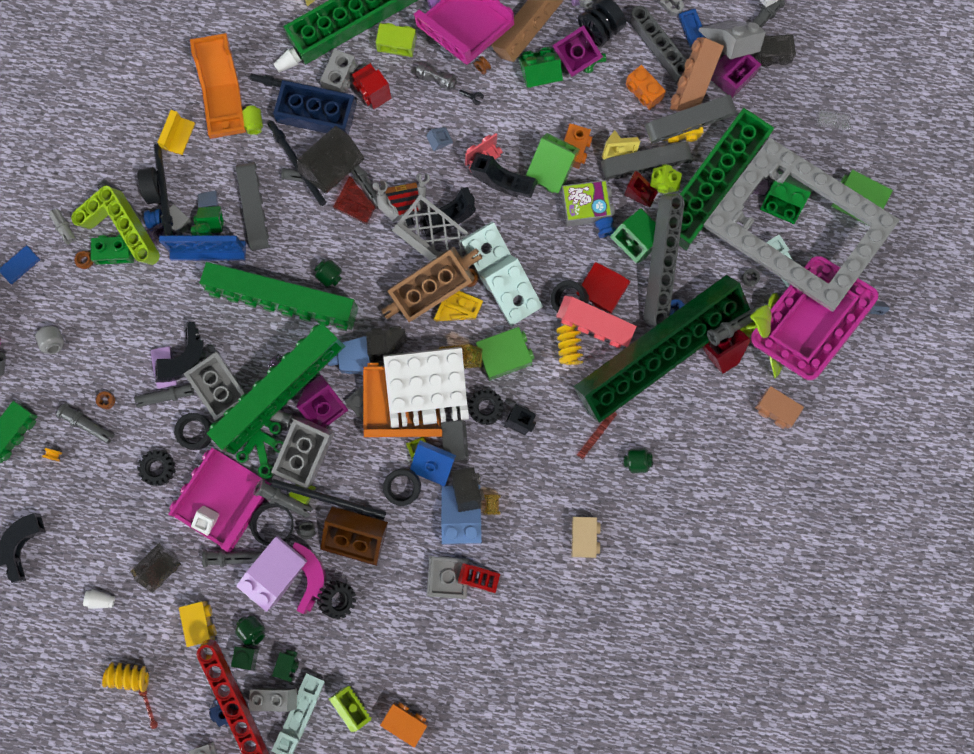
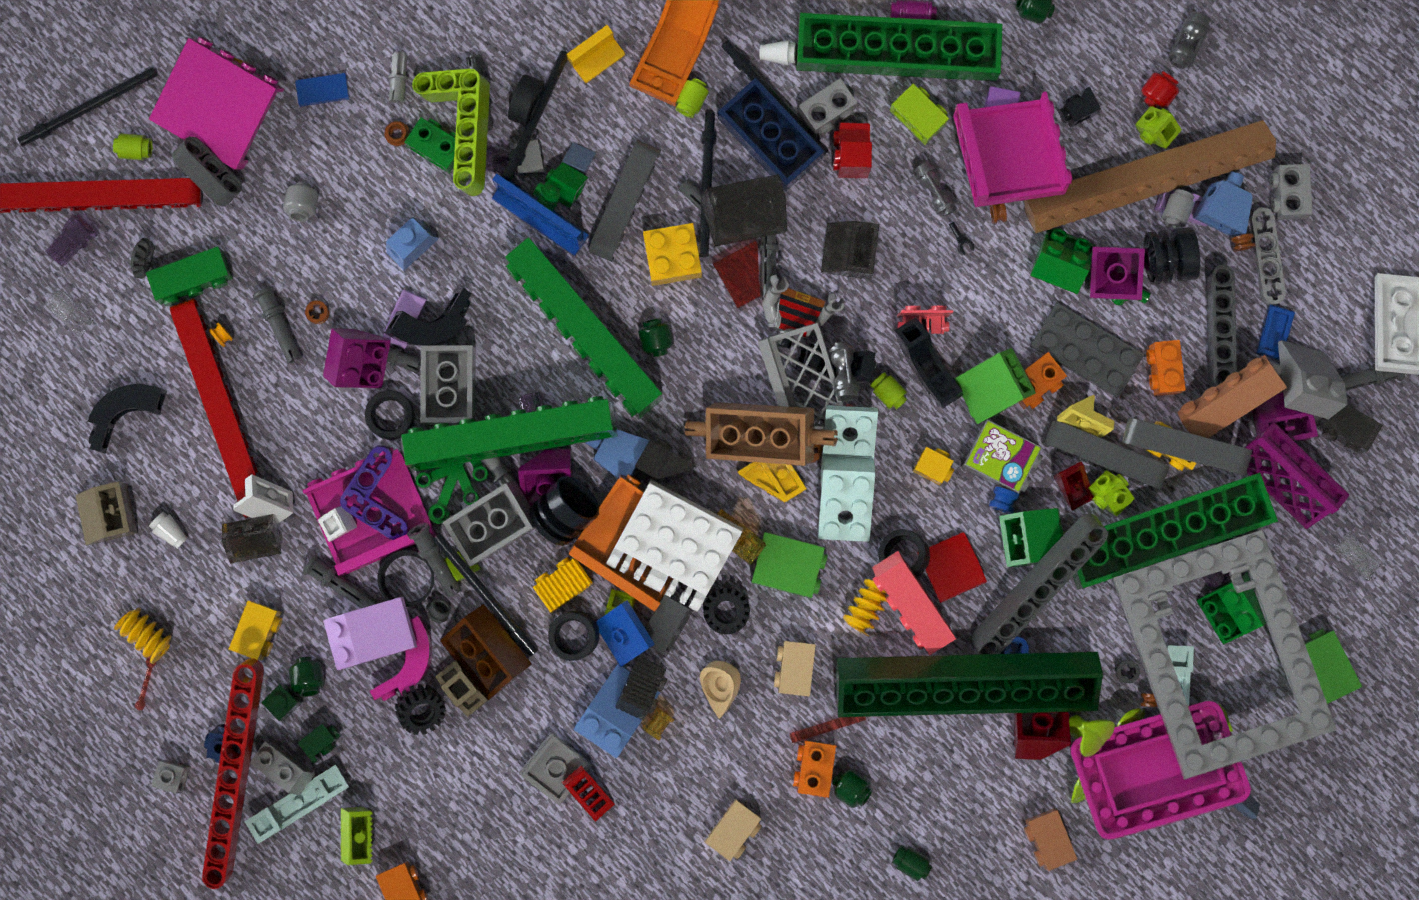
camera: 30 degrees right, 5 degrees up
(50, 616) = (106, 513): none -> dark tan slope
(78, 499) = (214, 394): none -> red beam
(135, 318) = (410, 242): none -> medium blue torso
(145, 465) = (323, 412): black tyre -> none
(147, 536) = (265, 499): none -> white panel
(148, 410) = (356, 359): none -> magenta slope
(152, 218) = (504, 138): blue wheel -> none
(209, 488) = (364, 492): none -> dark purple beam
(304, 217) = (672, 254): none -> yellow piece
(342, 413) = (564, 511): none -> black wheel
(354, 569) = (461, 688): none -> dark tan brick
(373, 460) = (562, 584): none -> yellow brick
(410, 143) = (850, 249): none -> clear smoke slope
(439, 138) = (889, 264): sand blue slope -> none
(461, 218) = (845, 383): none -> flat silver piece
(491, 210) = (889, 391): none -> lime brick
(514, 454) = (720, 685): none -> tan piece
(520, 414) = (757, 643): black brick -> none
(550, 235) = (934, 465): none -> yellow brick
(552, 411) = (796, 668): none -> tan brick
(592, 109) = (1087, 350): none -> dark grey plate
(607, 464) = (815, 768): none -> orange brick
(706, 480) = (912, 863): none -> dark green brick
(727, 329) = (1054, 714): dark grey pin -> none
(767, 87) = (1298, 468): none -> magenta fence
(777, 283) = (1148, 700): none -> dark orange bush

